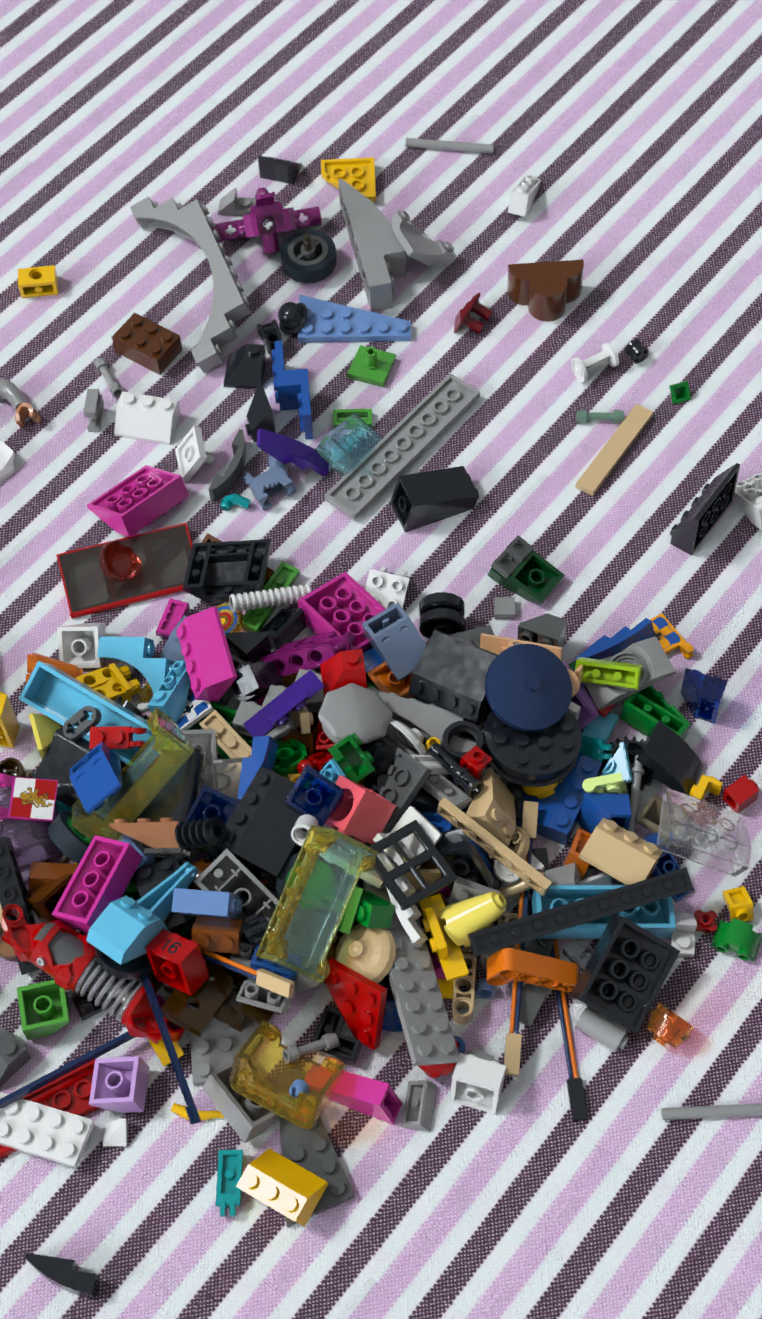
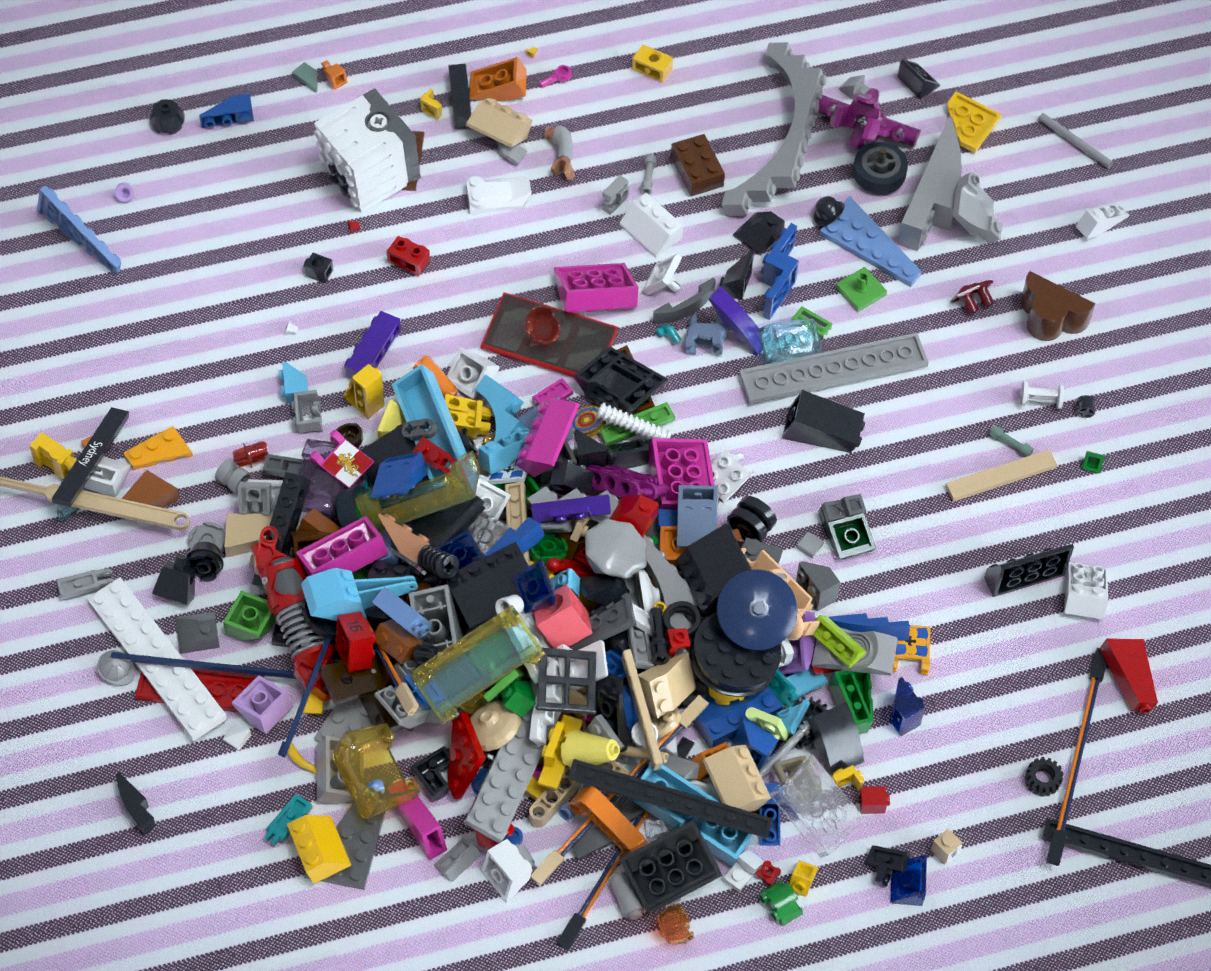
camera: 30 degrees right, 0 degrees up
(269, 334) = (799, 216): black piece -> none
(293, 1053) = (390, 761): light grey bar -> none
(351, 757) = (587, 578): green cylinder -> none

